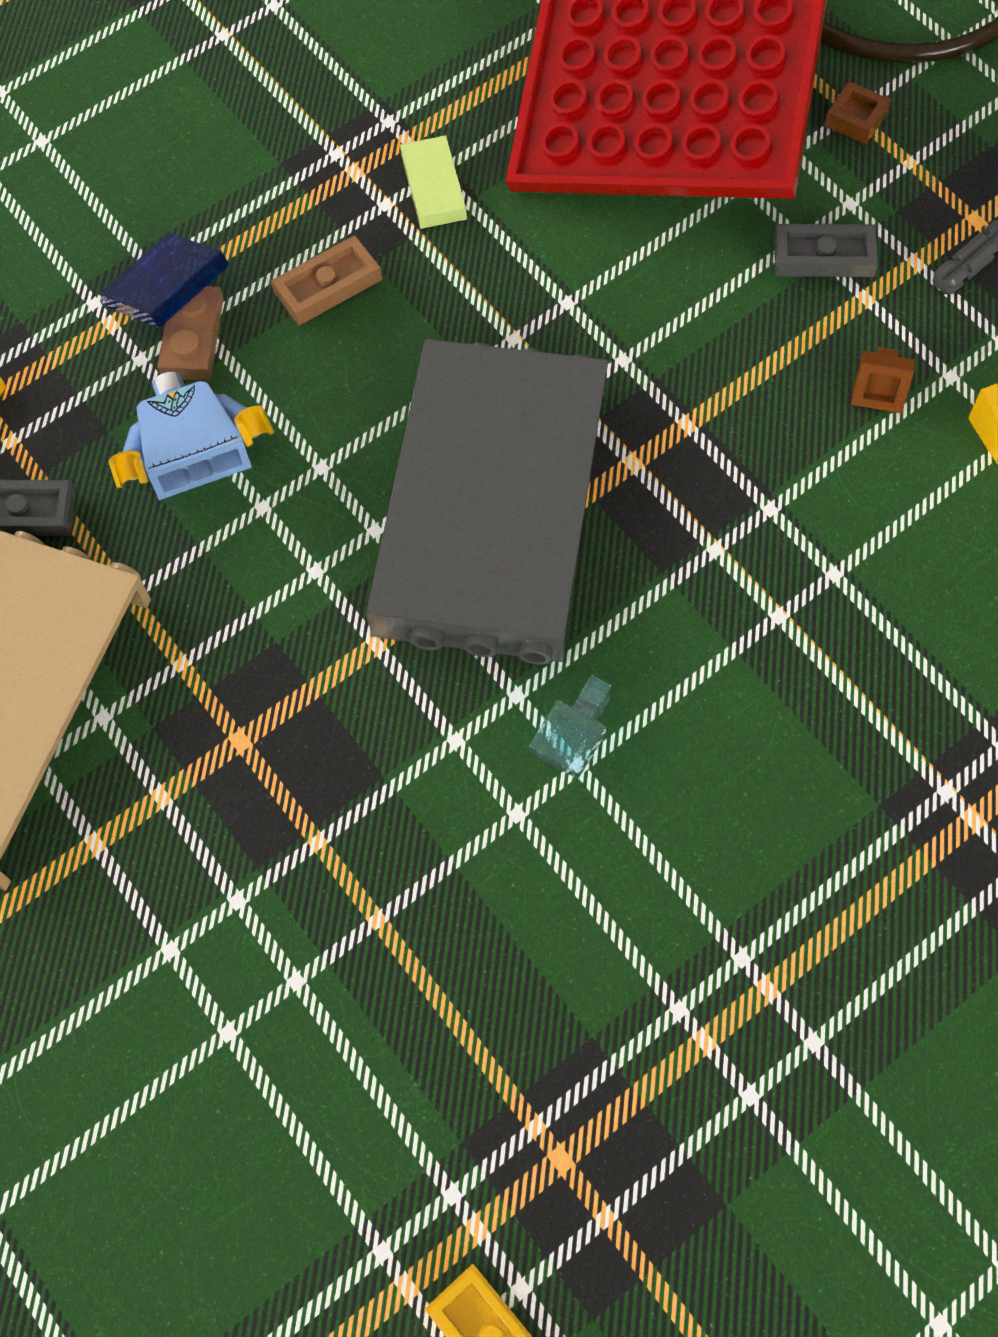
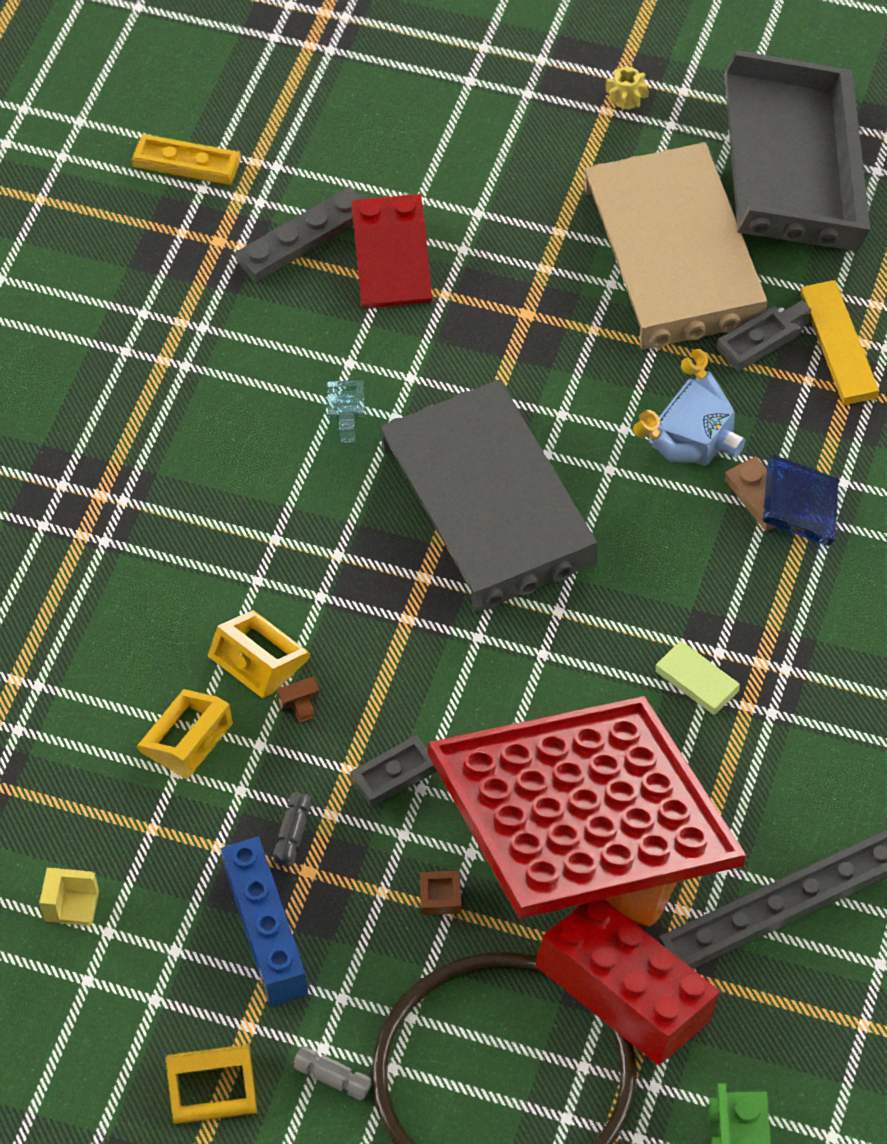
camera: 145 degrees right, 10 degrees down
(326, 280) = (702, 566): medium nougat plate -> none
(340, 941) = (391, 251): none -> red slope
(434, 1075) = (298, 236): none -> dark grey plate
(933, 489) = (248, 660): none -> yellow tile

